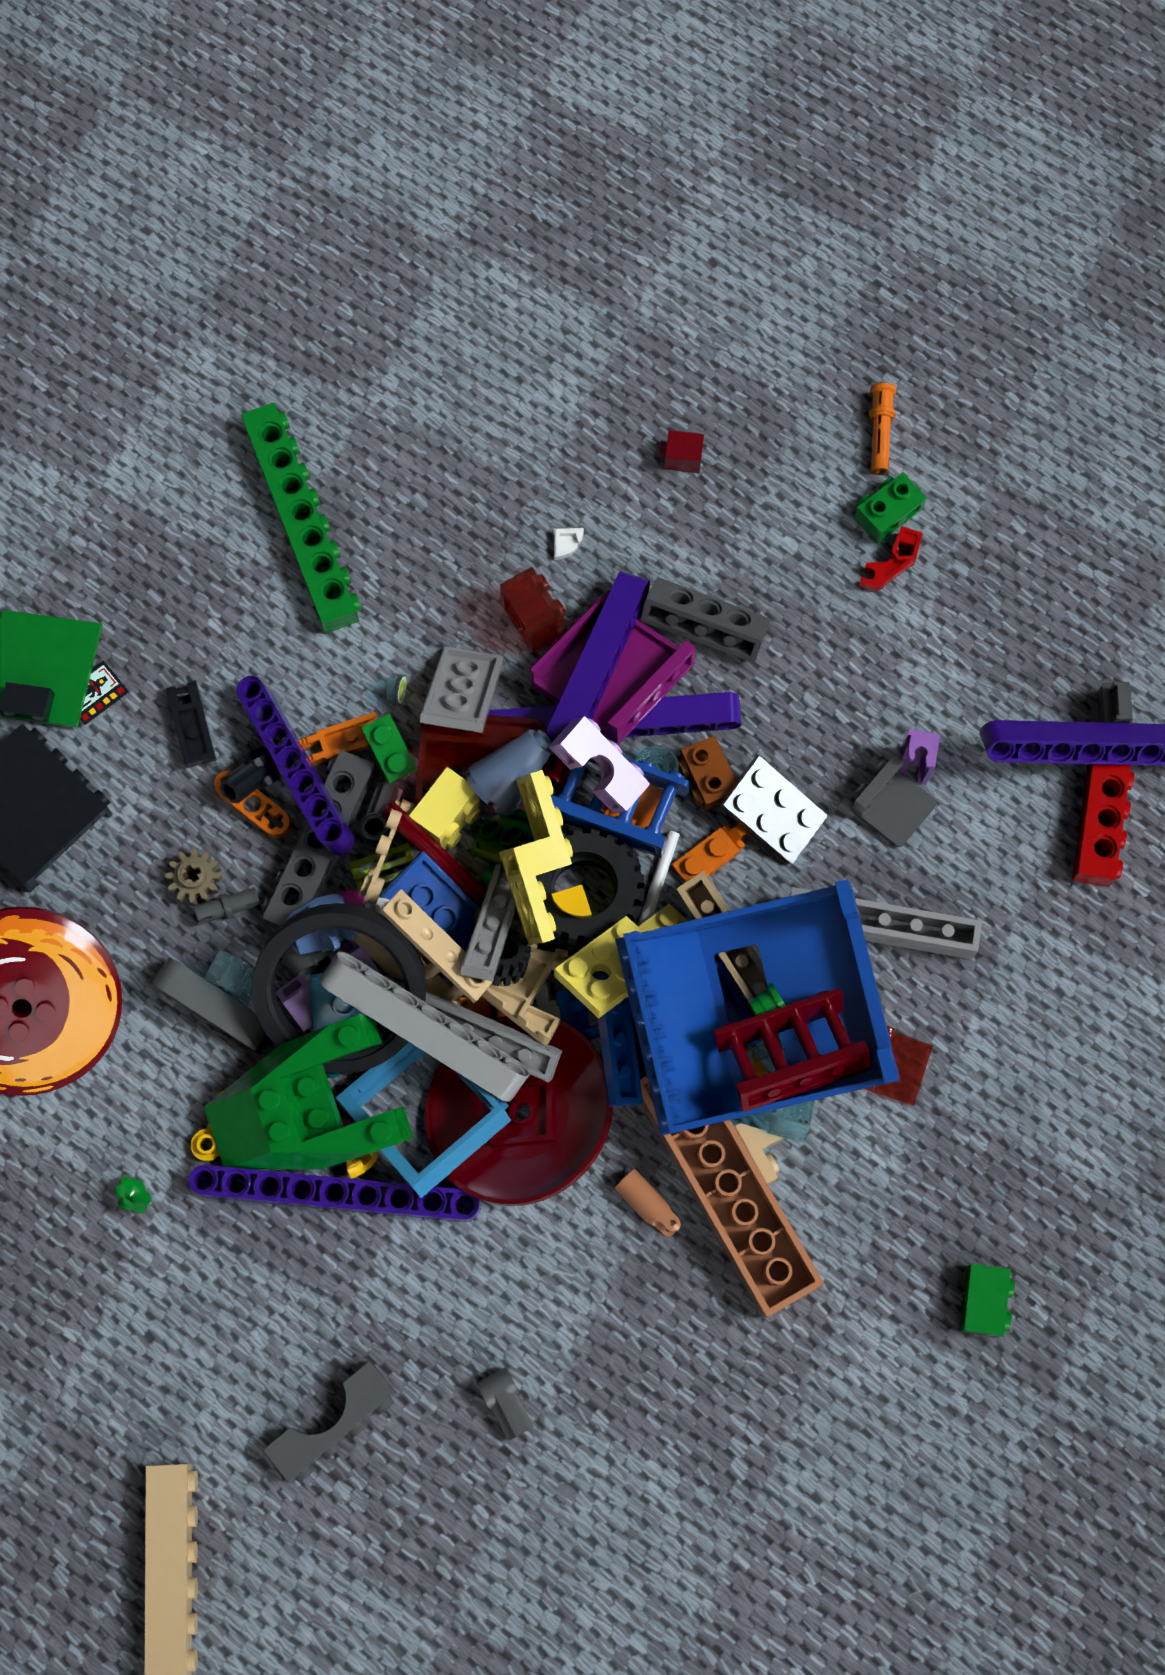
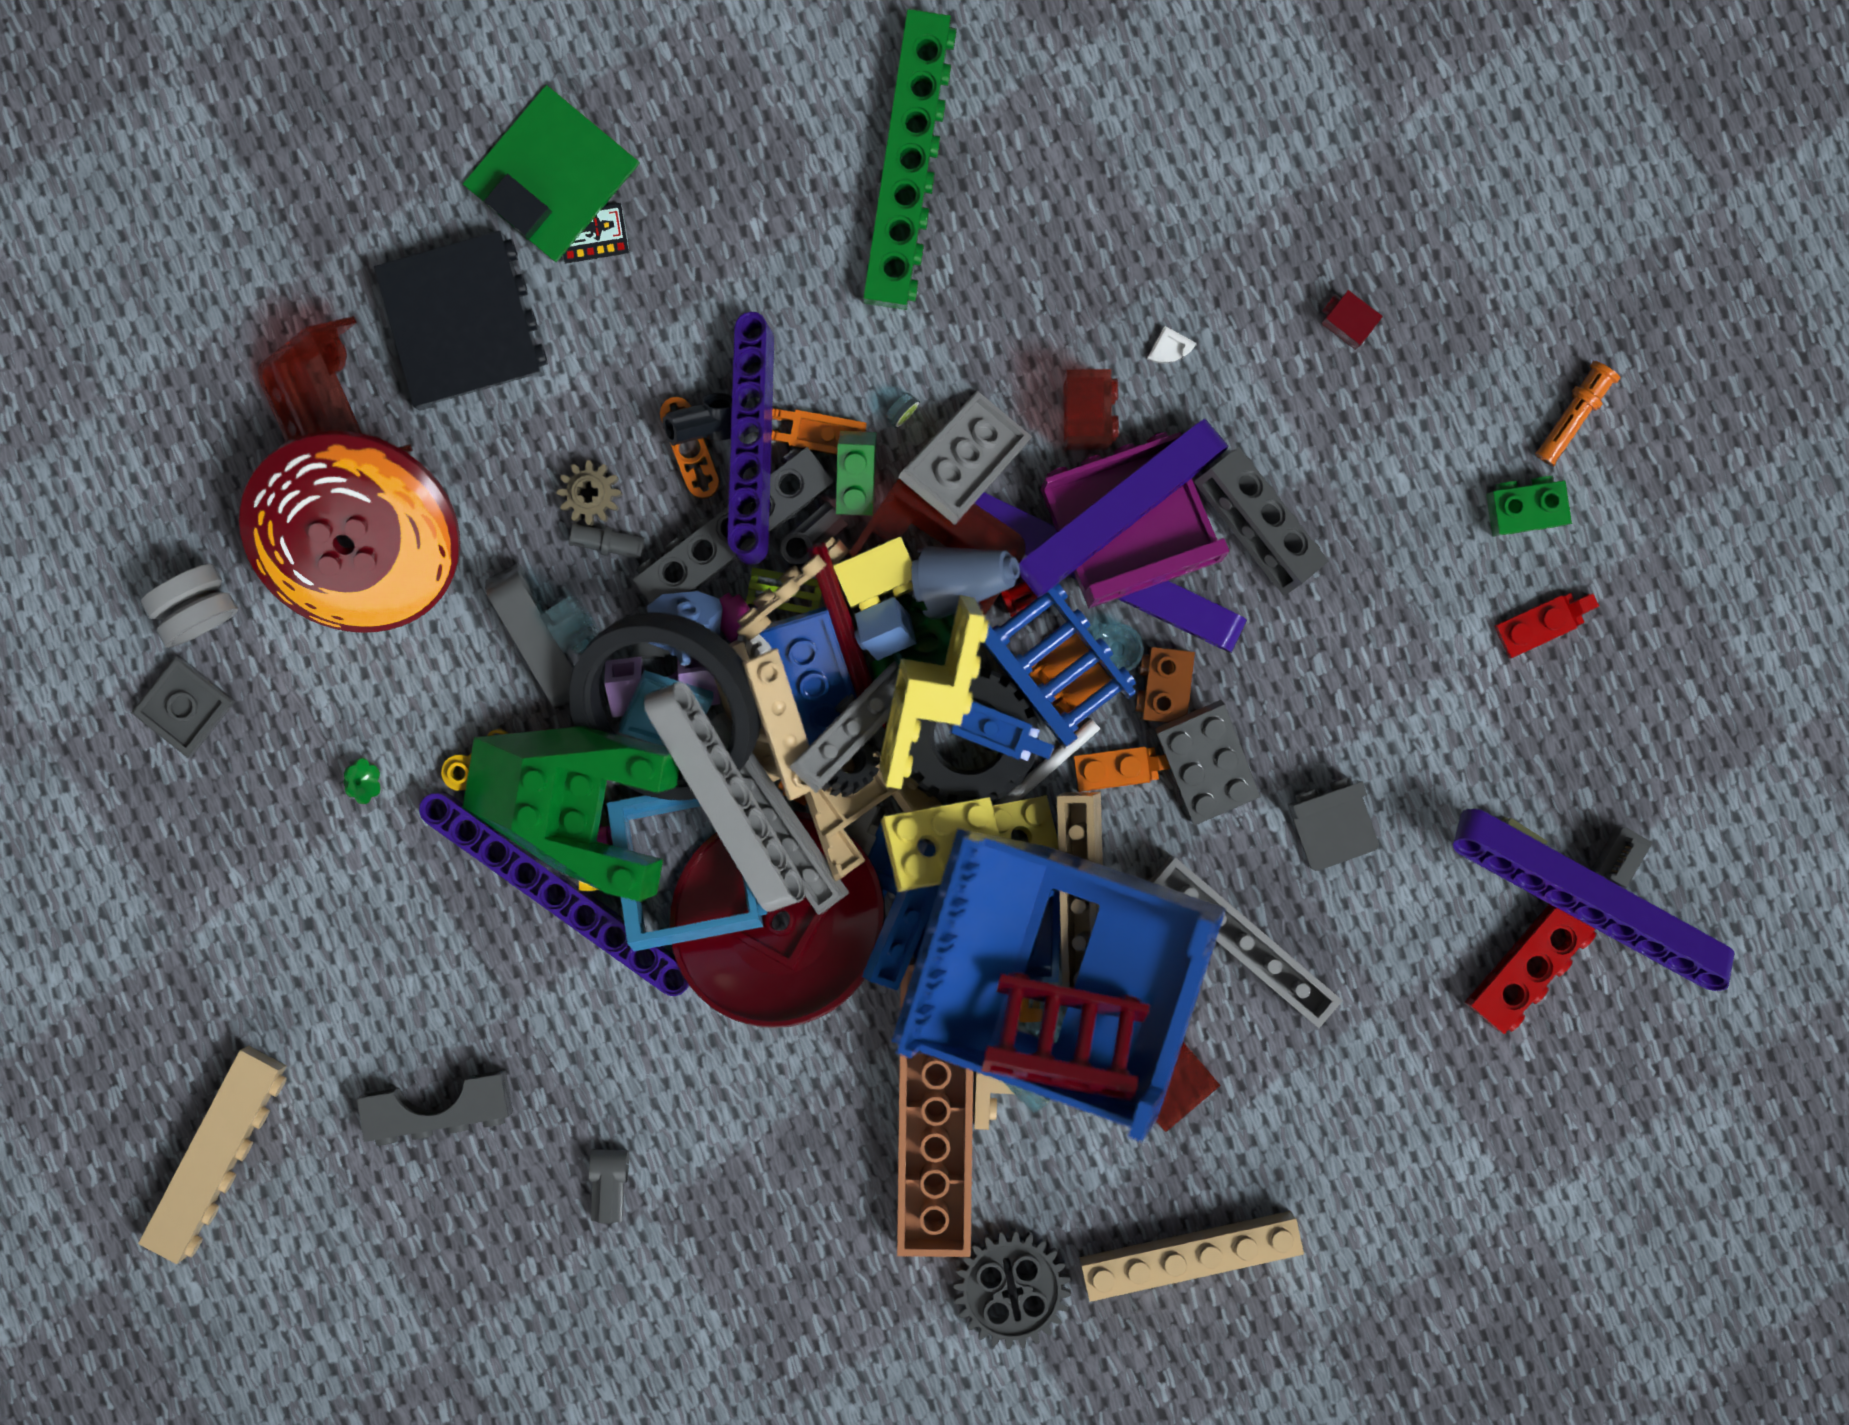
camera: 30 degrees right, 15 degrees up
(191, 725) = (673, 326): black plate -> none
(474, 843) = (884, 629): none -> medium blue brick
(573, 902) = (946, 750): yellow tile -> none
(606, 864) = (1001, 733): none -> blue hinge
(620, 779) = (1064, 657): arch -> none
(648, 1203) = (851, 1075): nougat piece -> none
(766, 1001) = (1072, 973): green piece -> none
(885, 572) = (1480, 574): red piece -> none
(893, 1277) = (1043, 1282): none -> dark grey gear
(920, 750) = (1393, 793): medium lavender hinge -> none
(952, 581) = (1543, 623): none -> red hinge
(986, 1300) = (1117, 1355): green brick -> none
(992, 1187) = (1191, 1256): none -> tan brick

